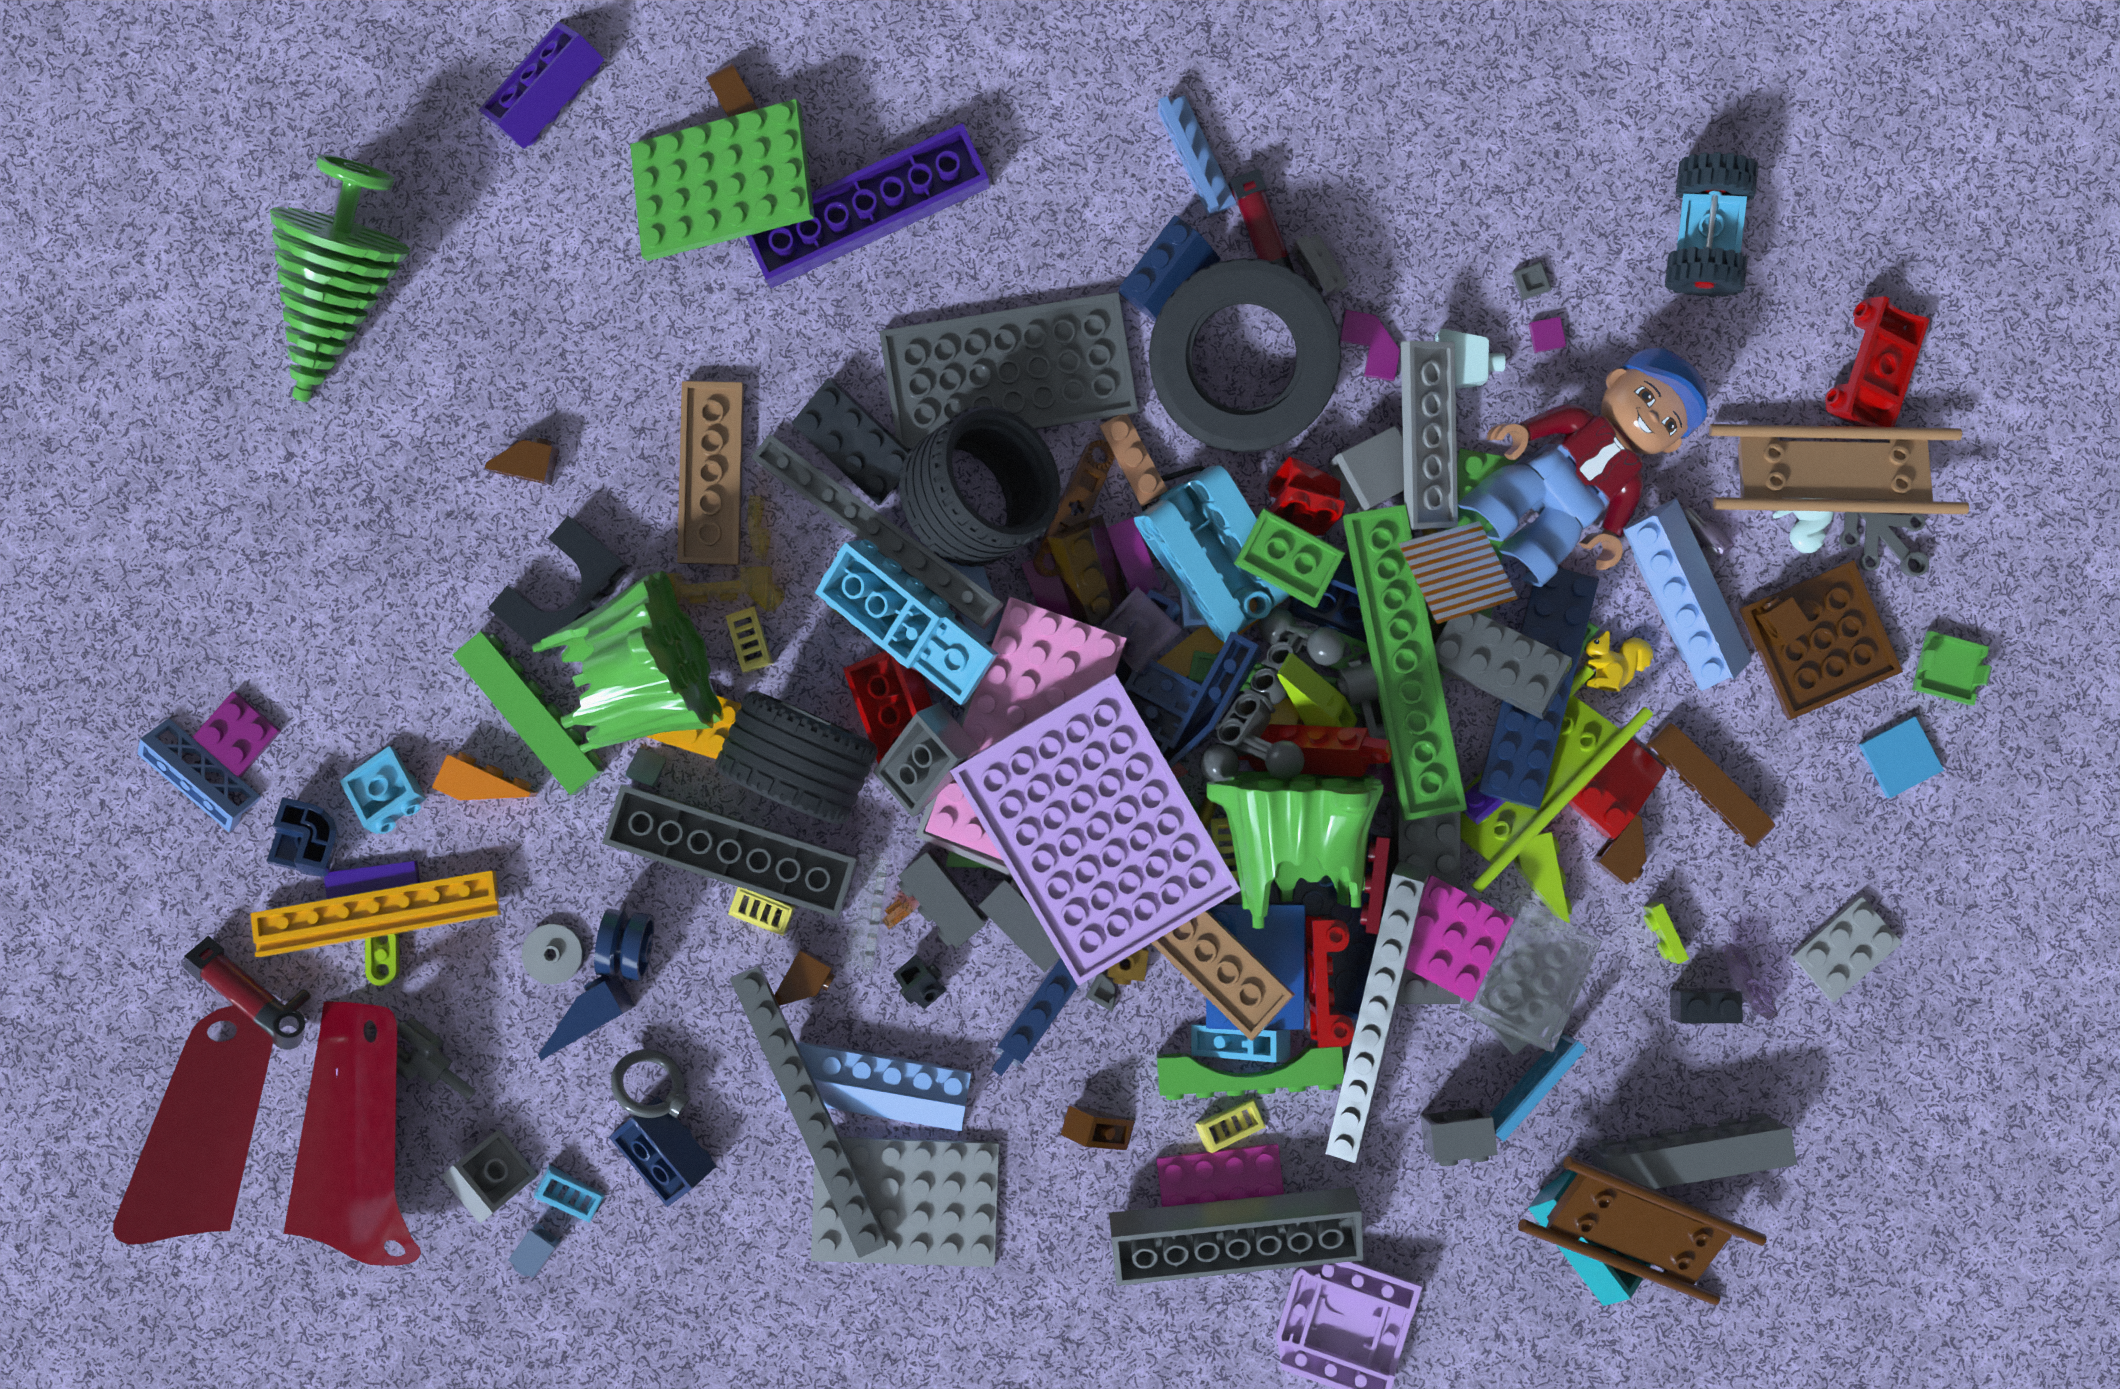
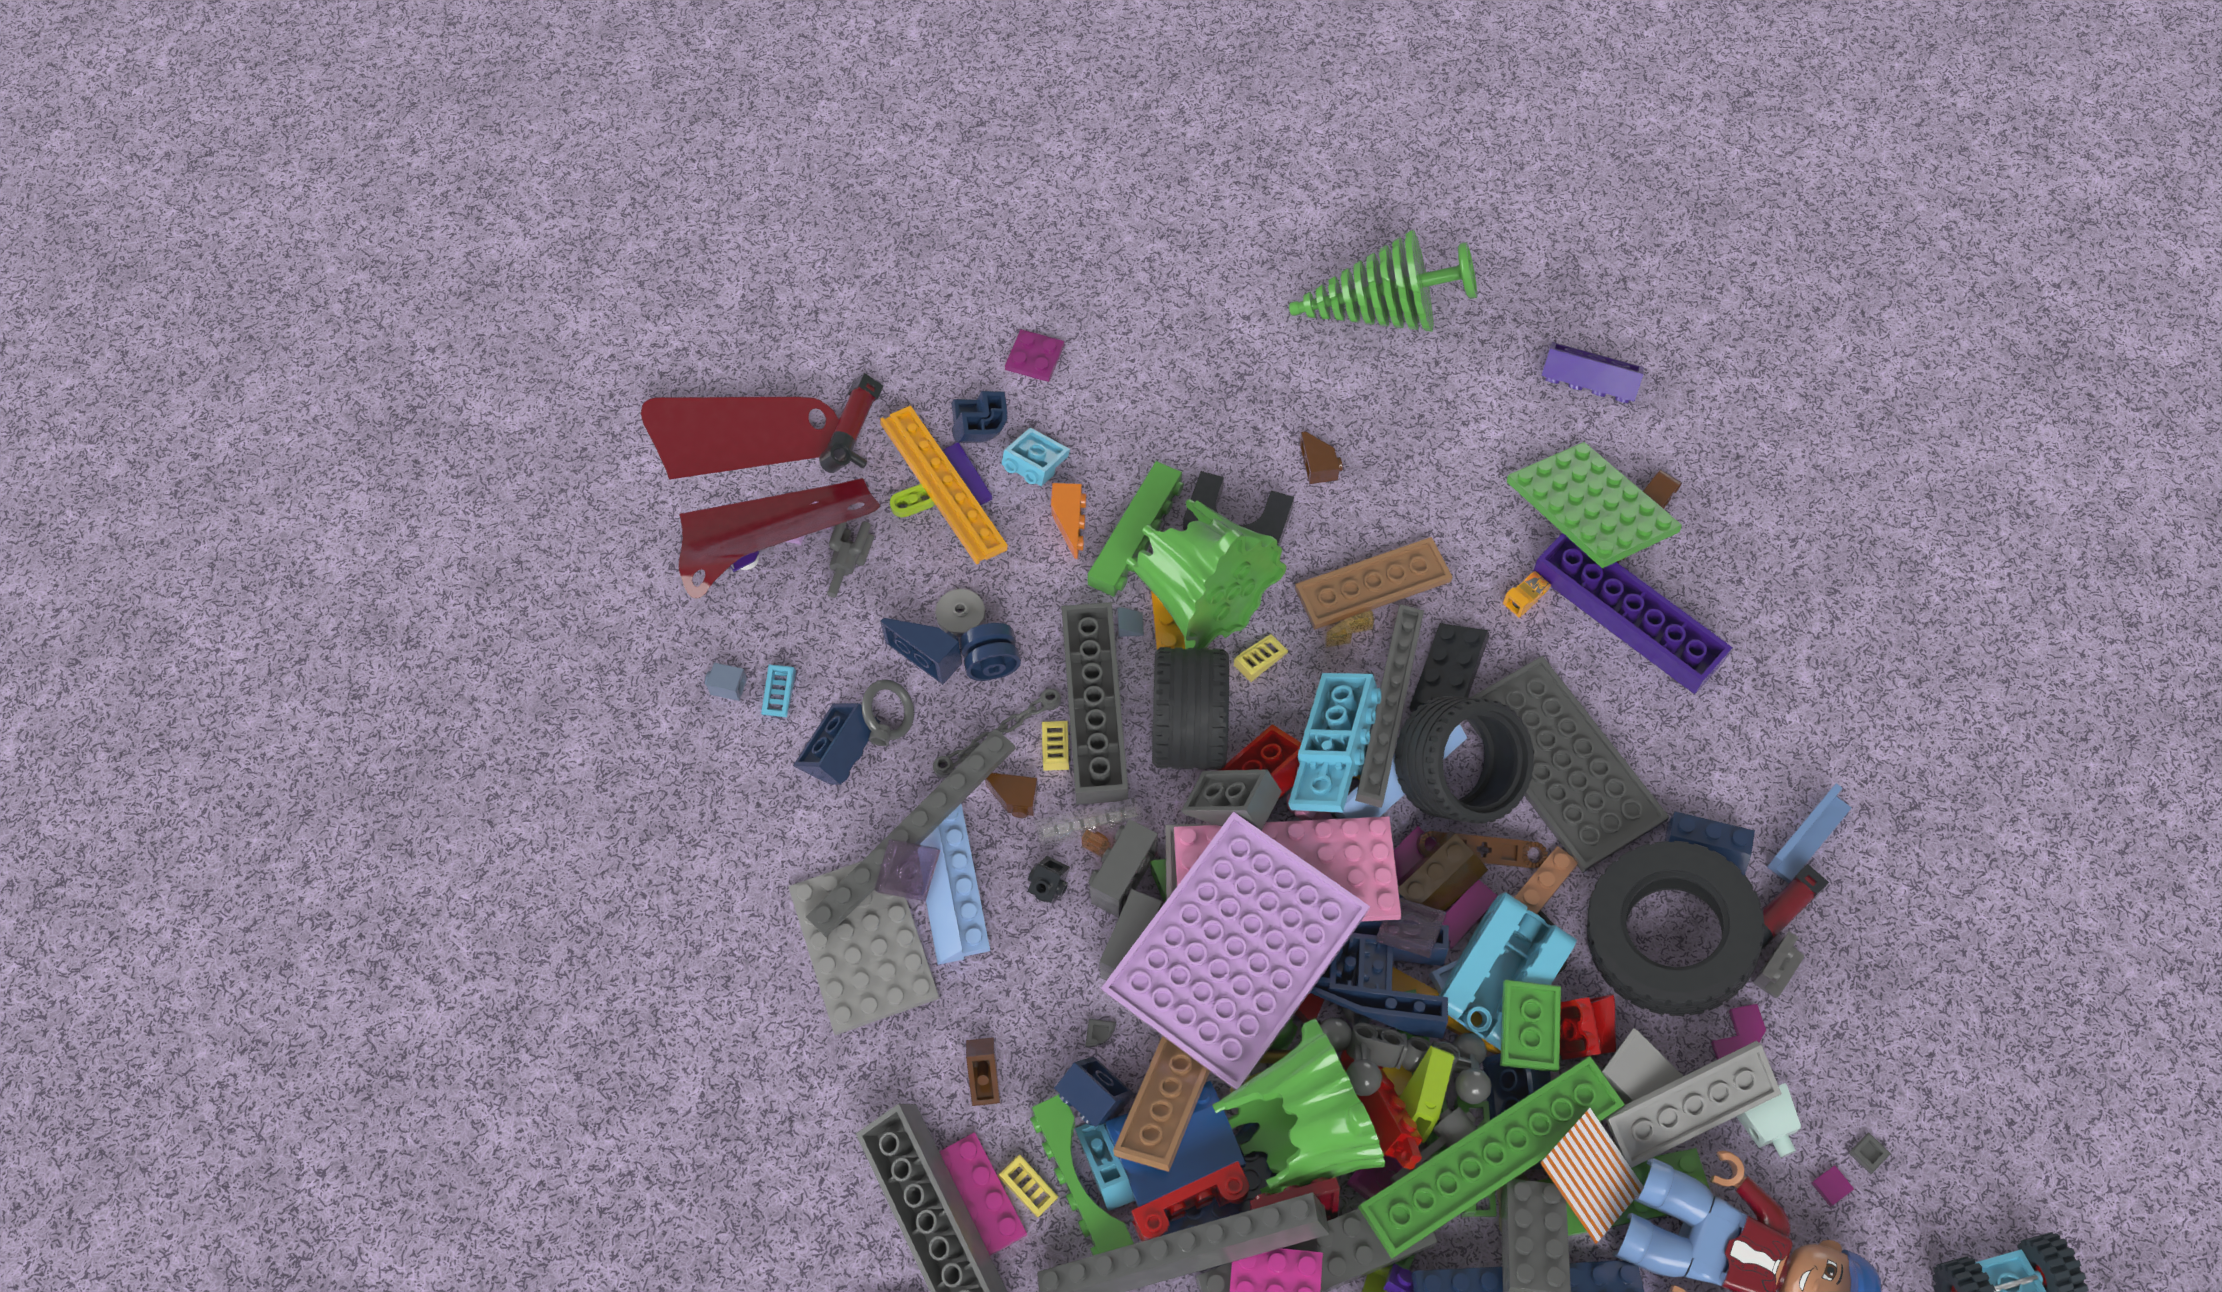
camera: 70 degrees right, 25 degrees down
(191, 783) = (988, 340): medium blue fence -> none
(489, 1176) = (773, 629): light grey slope -> none
(718, 960) = (1046, 705): none -> dark grey piece
(754, 582) = (1306, 641): clear yellow plate -> none
(796, 309) = (1526, 594): none -> light orange leg
(851, 1132) = (907, 870): none -> clear purple tile
(1035, 1017) = (1060, 983): dark blue hinge -> none
(1133, 971) = (1132, 1046): pearl gold brick -> none
(1170, 1027) = (1093, 1091): none -> dark blue brick

